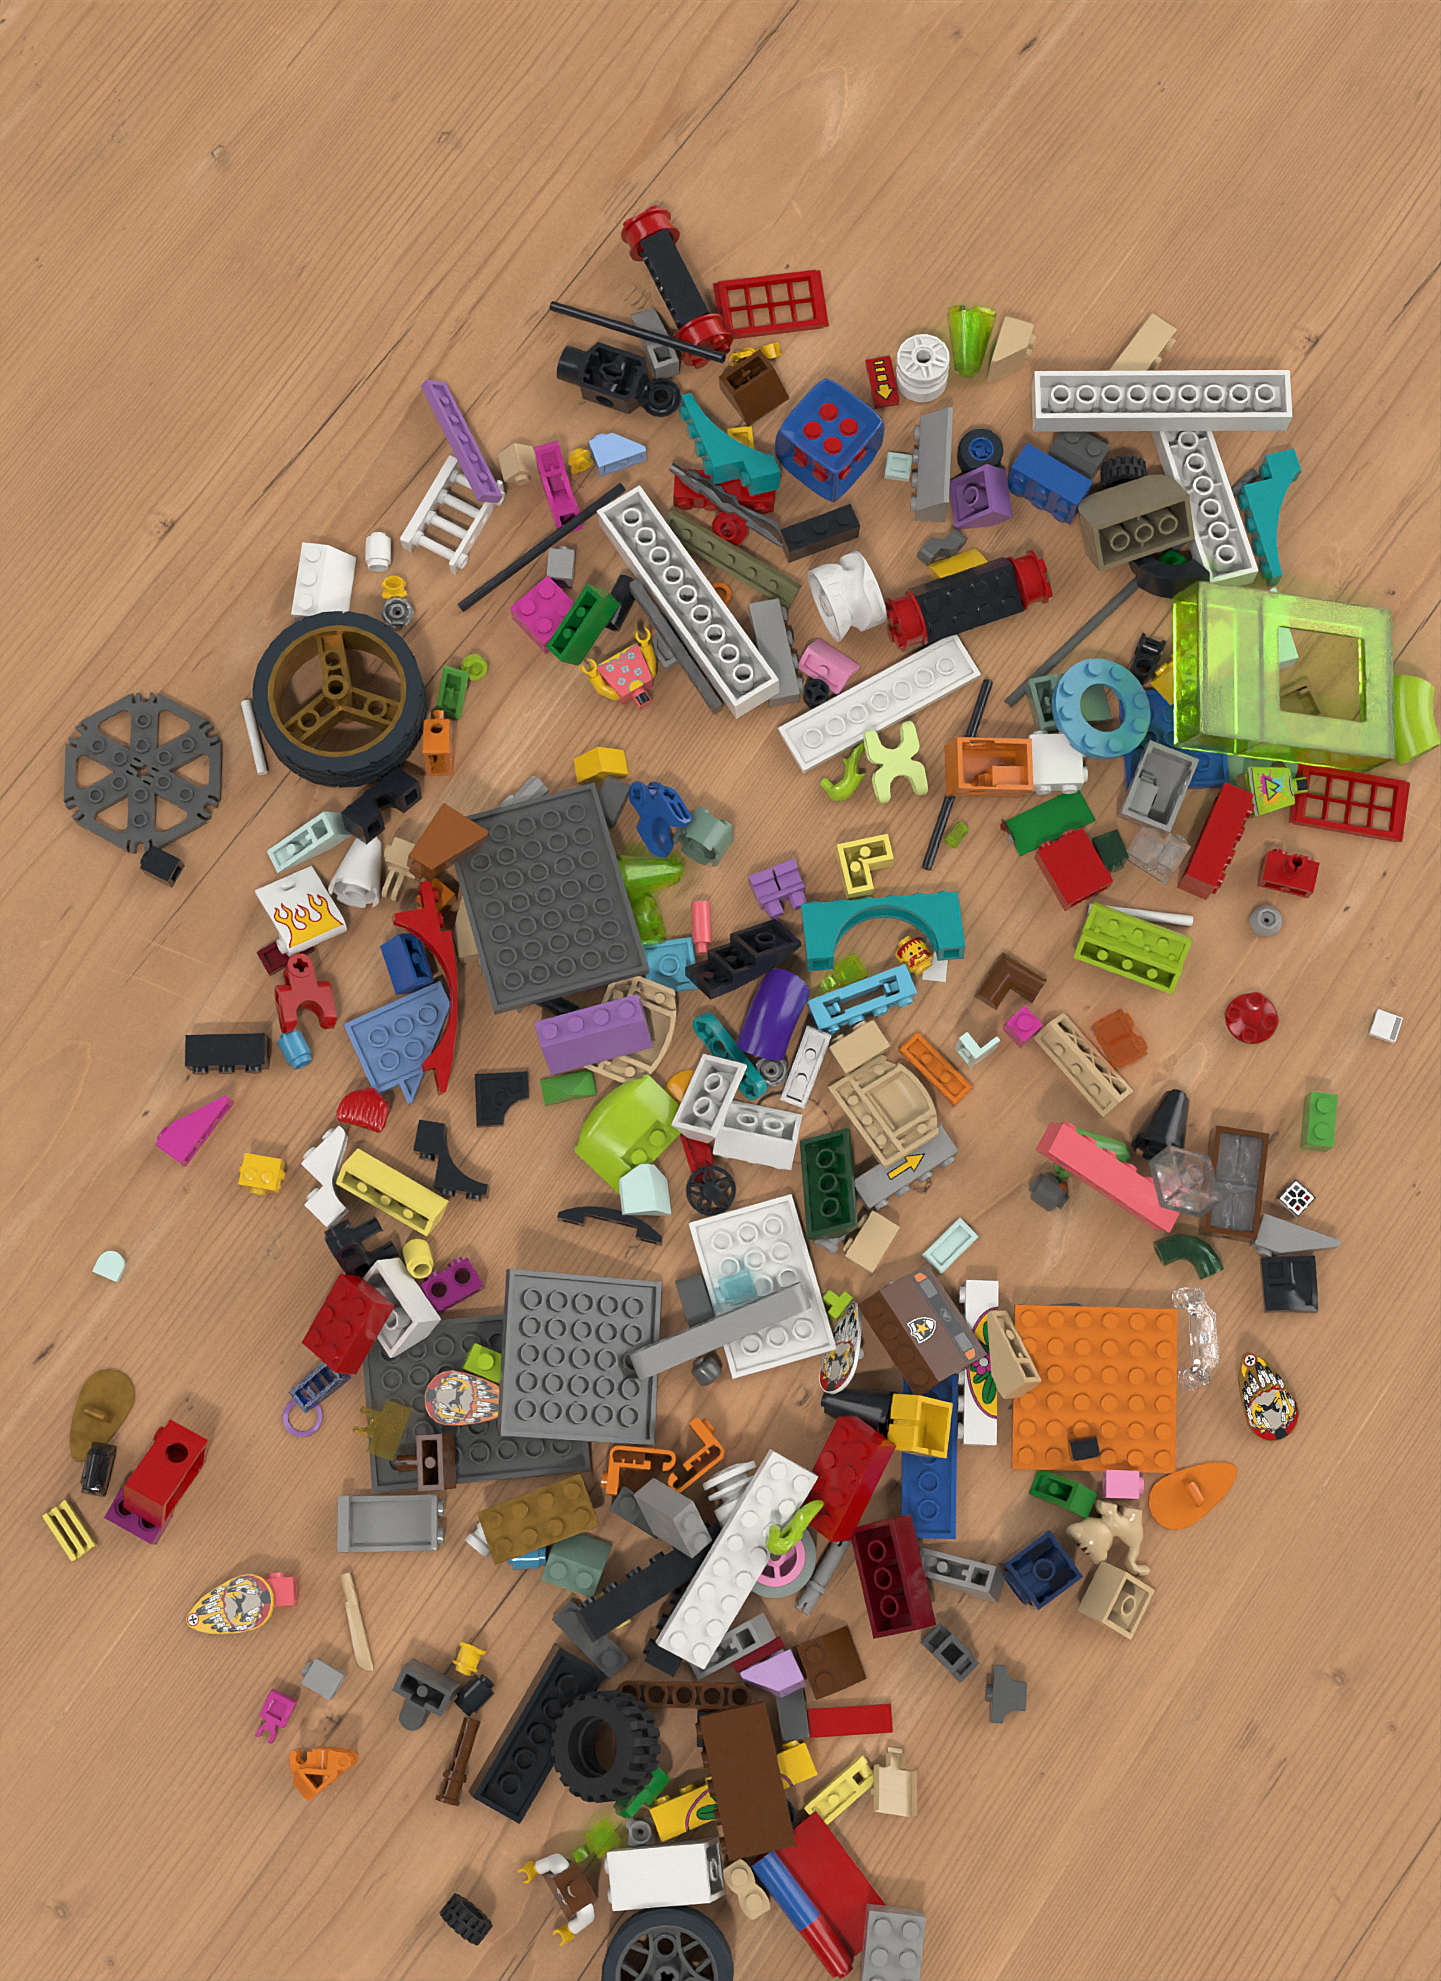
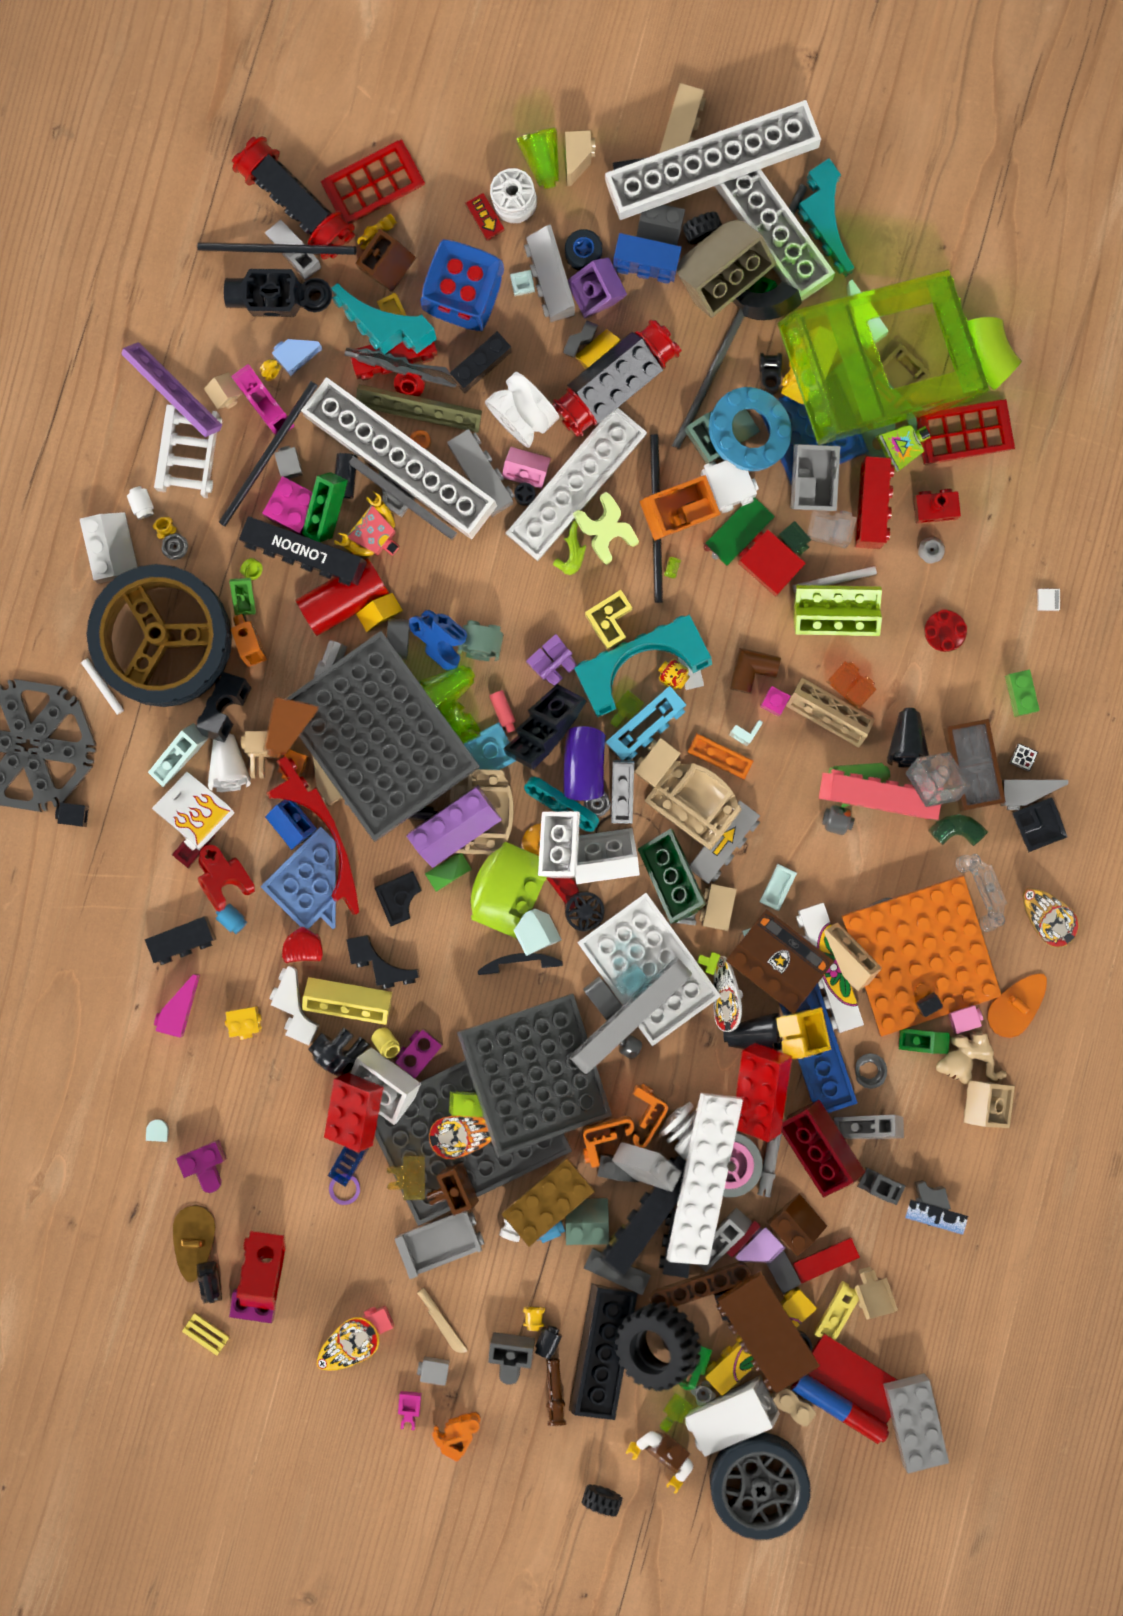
camera: 20 degrees left, 10 degrees up
(147, 1322) = (203, 1163): none -> magenta brick
(539, 665) = (302, 550): none -> black brick
(563, 734) = (336, 602): none -> red brick
(782, 1542) = (732, 1157): lime piece -> none
(999, 1502) = (879, 1078): none -> dark grey piece
(1004, 1714) = (936, 1217): none -> sticker
(1039, 1570) = (927, 1106): dark blue brick -> none

